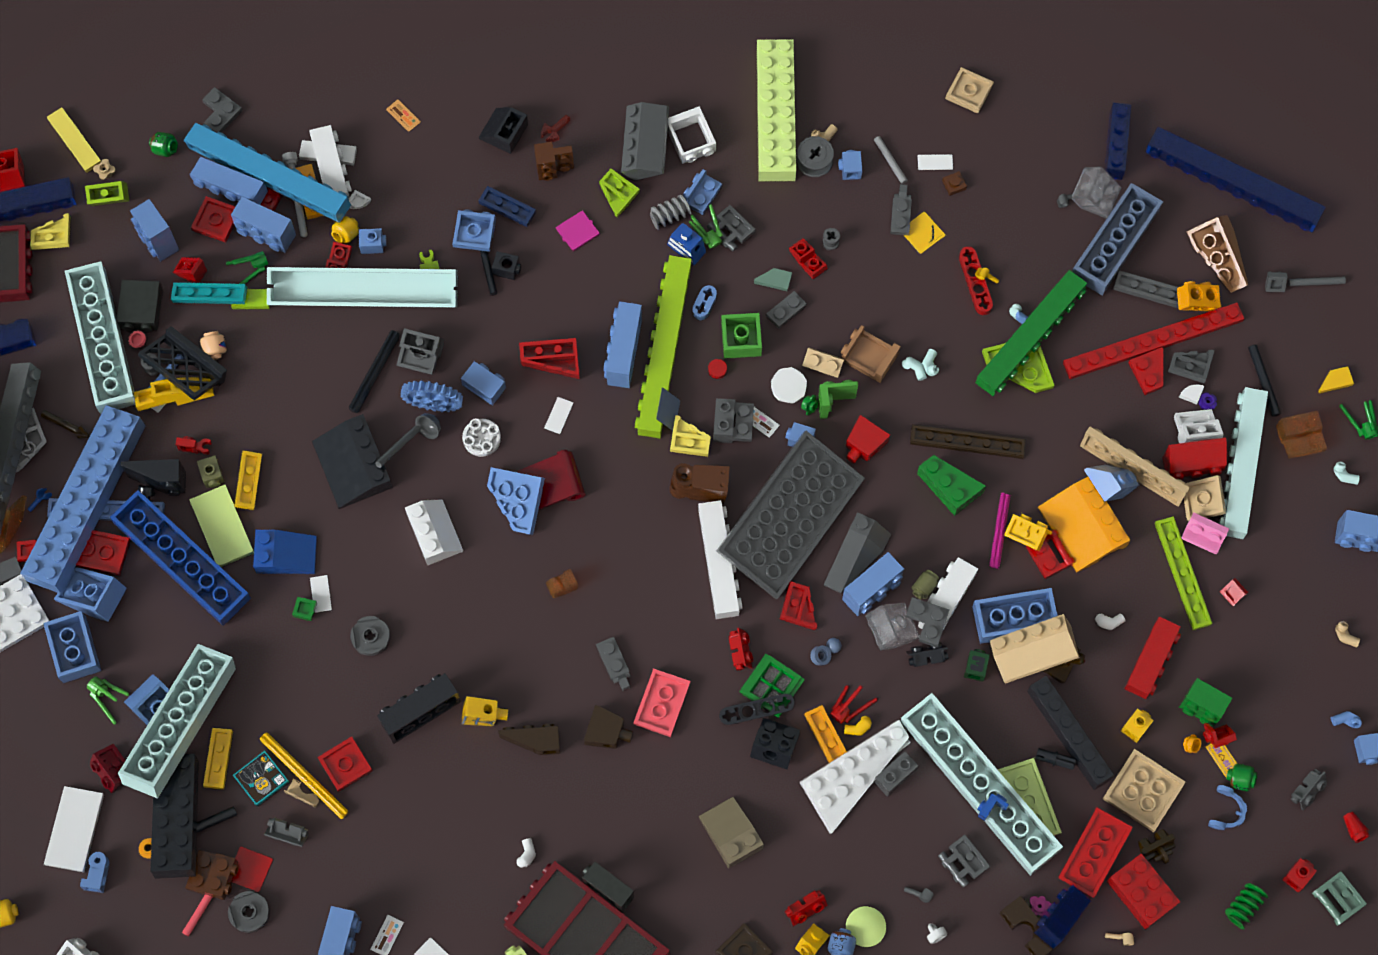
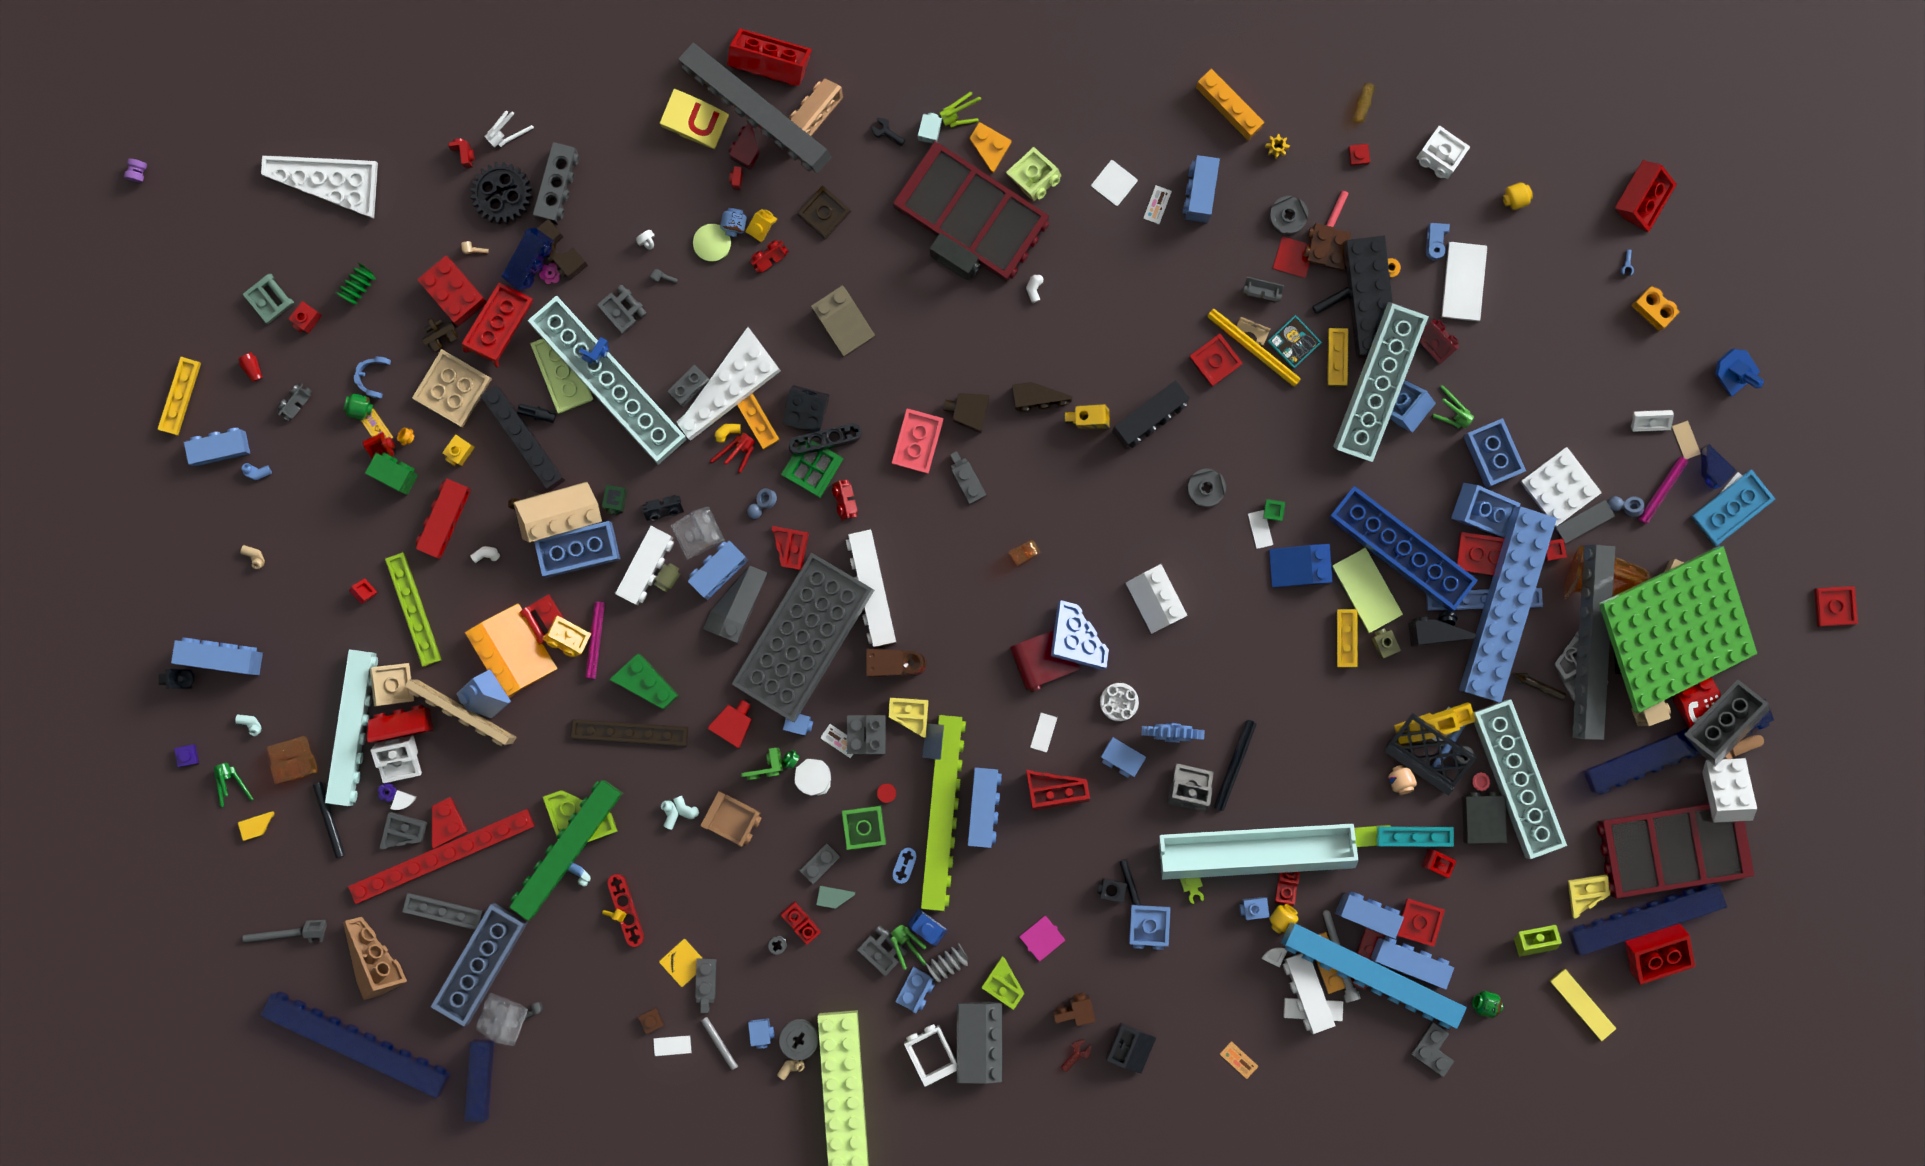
camera: 175 degrees right, 15 degrees up
(40, 496) = (1551, 606): blue hand -> none
(104, 174) = (1539, 971): tan plate -> none
(153, 230) = (1481, 896): medium blue brick -> none
(189, 444) = (1411, 671): red plate -> none
(257, 260) = (1370, 878): green plant -> none
(349, 462) = (1245, 665): black slope -> none
(426, 424) = (1174, 709): dark grey piece -> none
(507, 206) = (1118, 959): dark blue plate -> none
(823, 362) = (779, 806): tan plate -> none
(932, 617) = (657, 537): dark grey plate -> none
(969, 90) = (638, 1131): tan plate -> none
(1198, 297) = (394, 903): light orange brick -> none
(1205, 533) = (391, 647): bright pink bracket -> none

